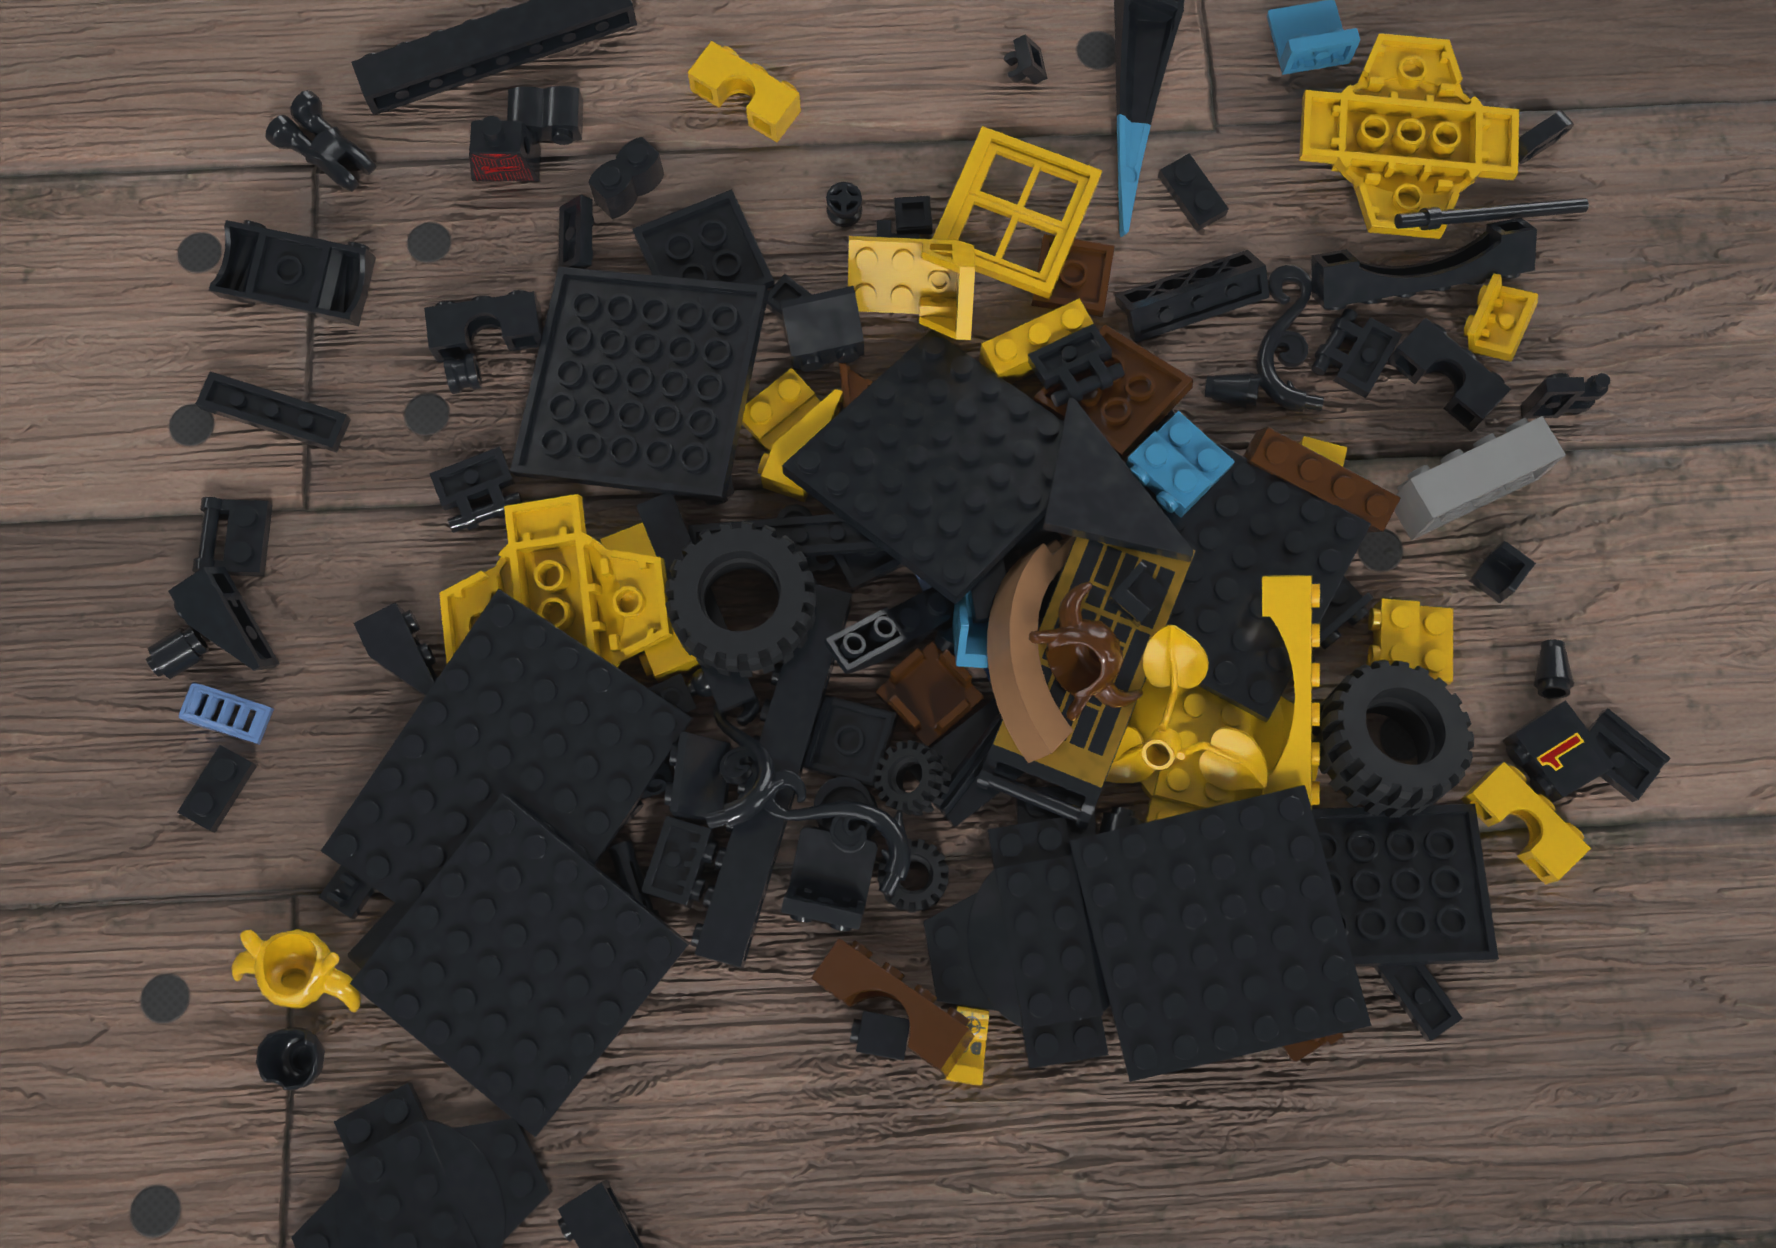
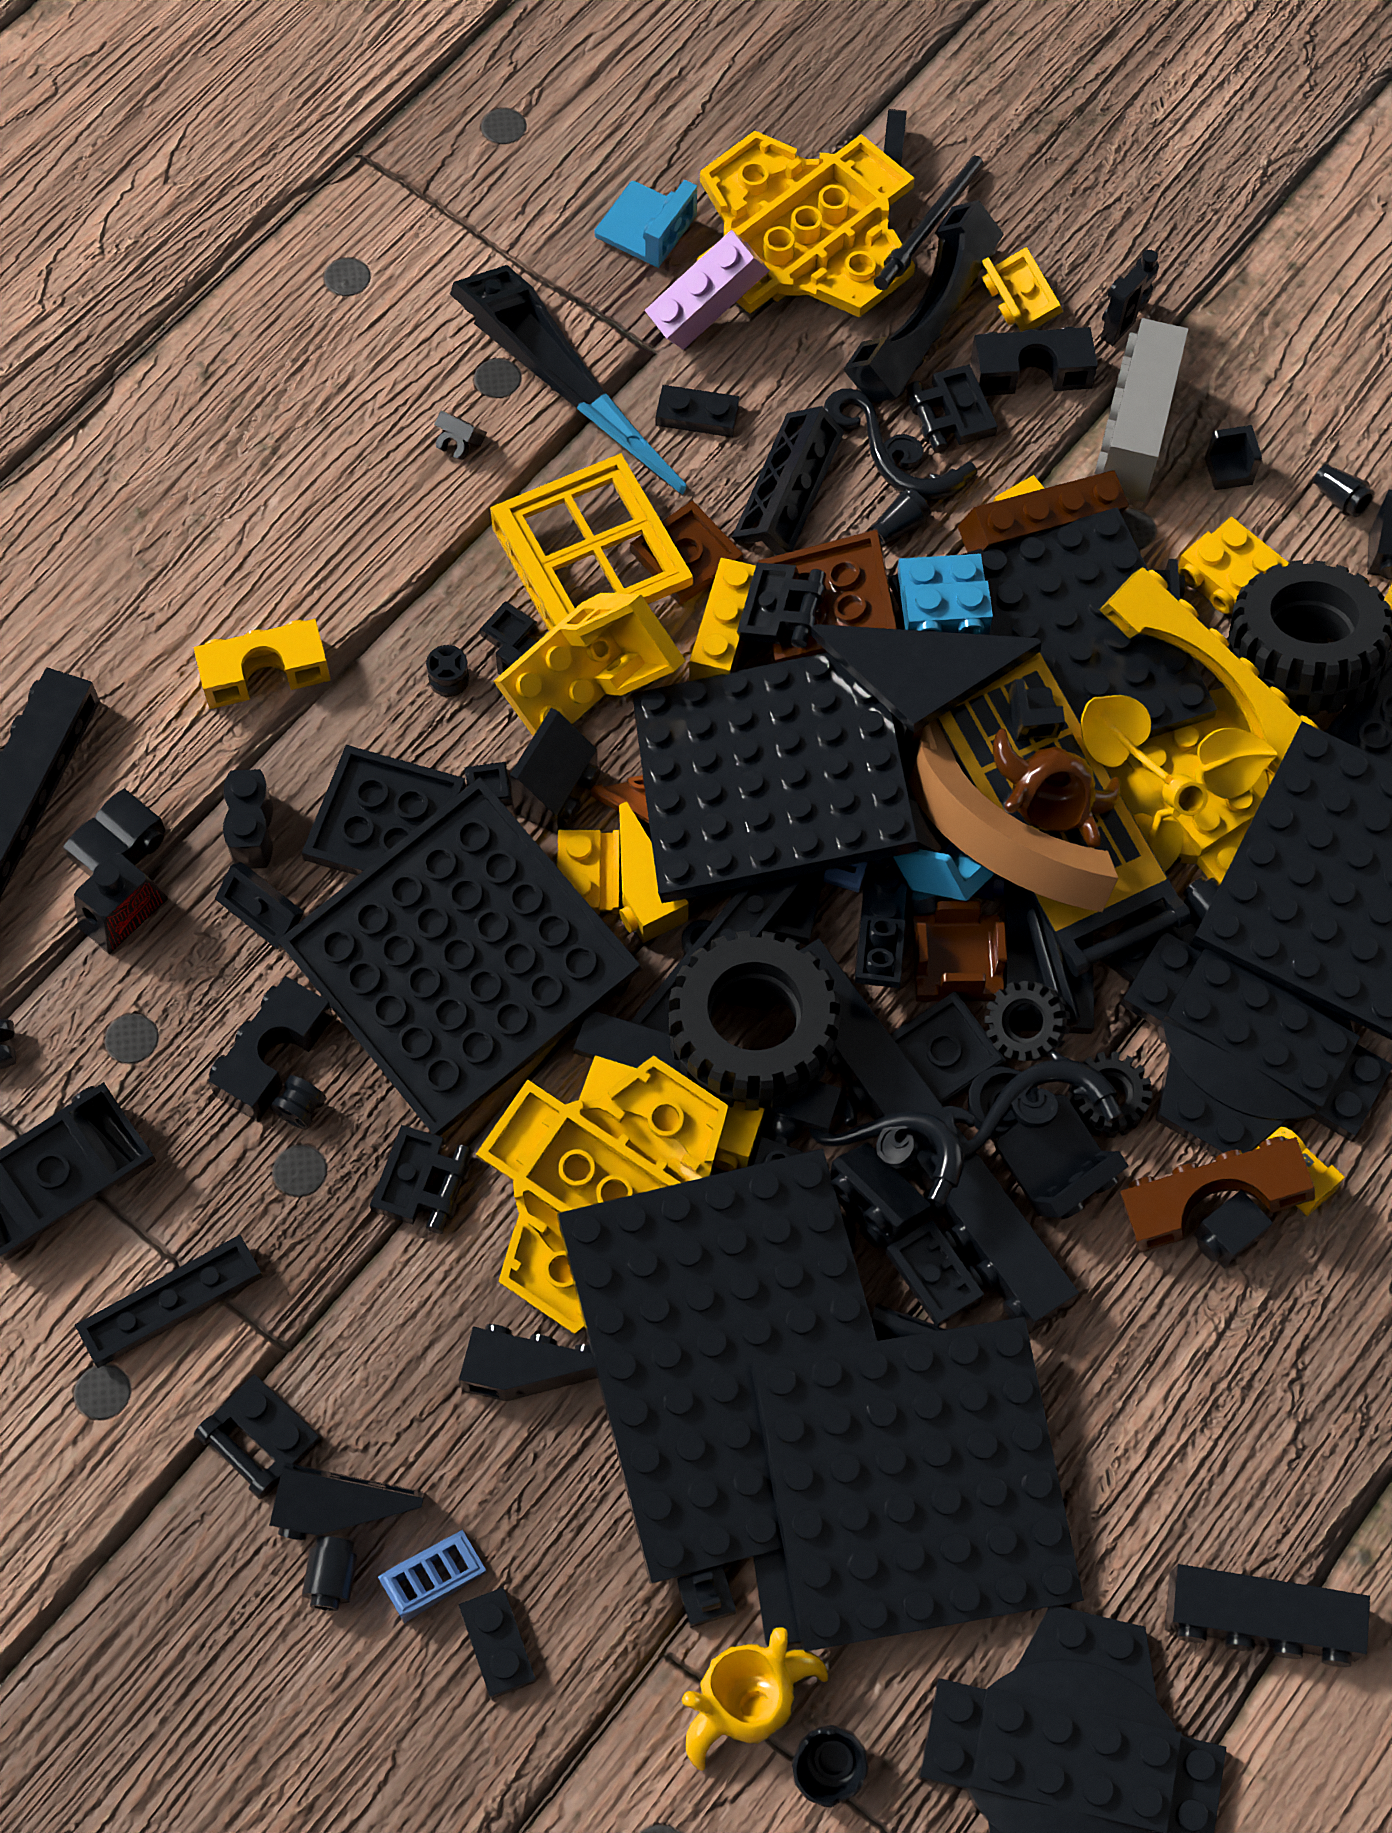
camera: 50 degrees left, 10 degrees down
(1282, 116) = (707, 290): none -> lavender brick

